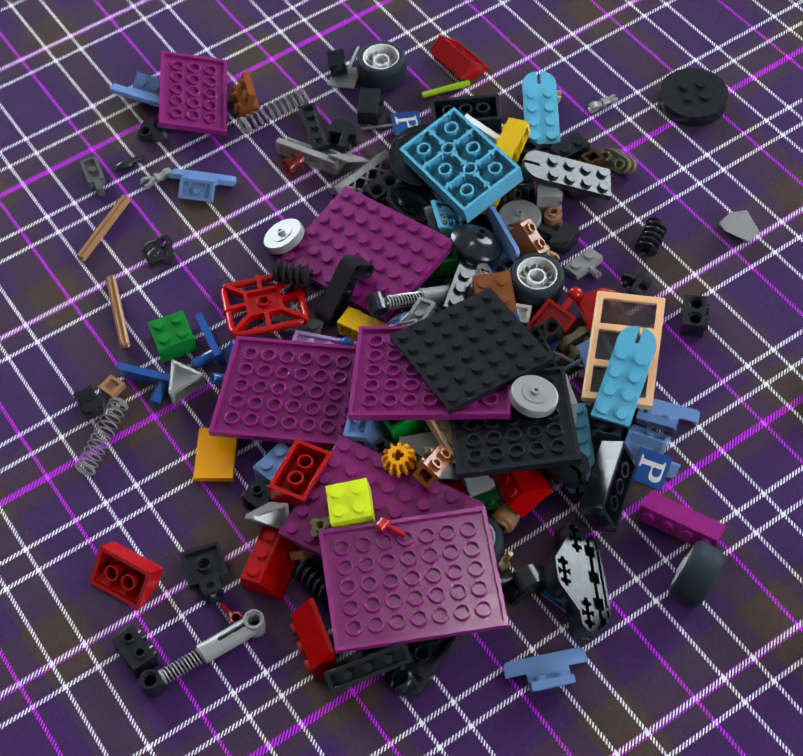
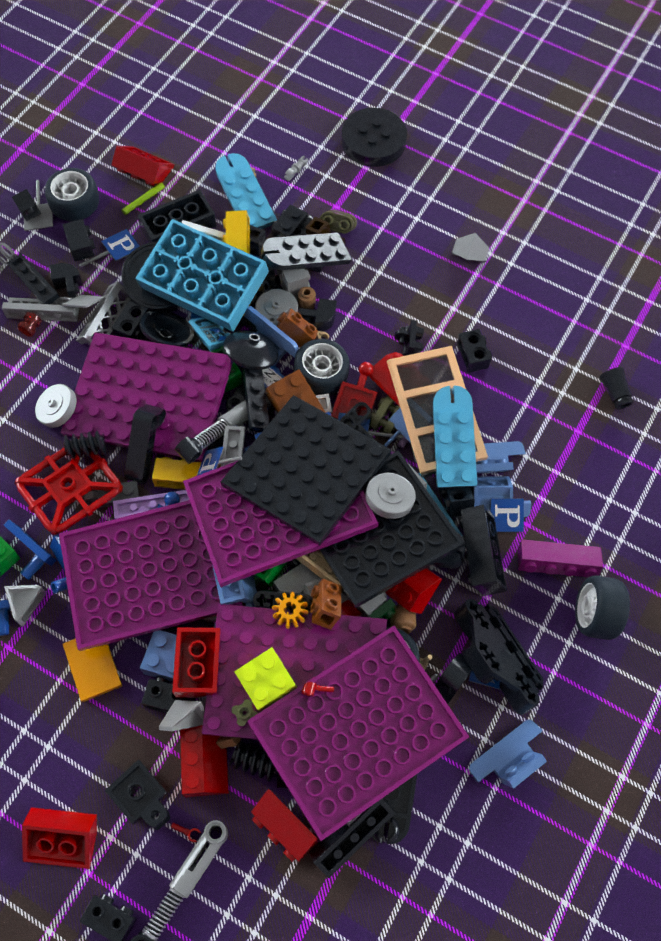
camera: 30 degrees left, 10 degrees up
(431, 218) = (196, 341): light grey piece -> none
(584, 264) = (354, 333): light grey plate -> none
(651, 237) = (402, 286): black piece -> none

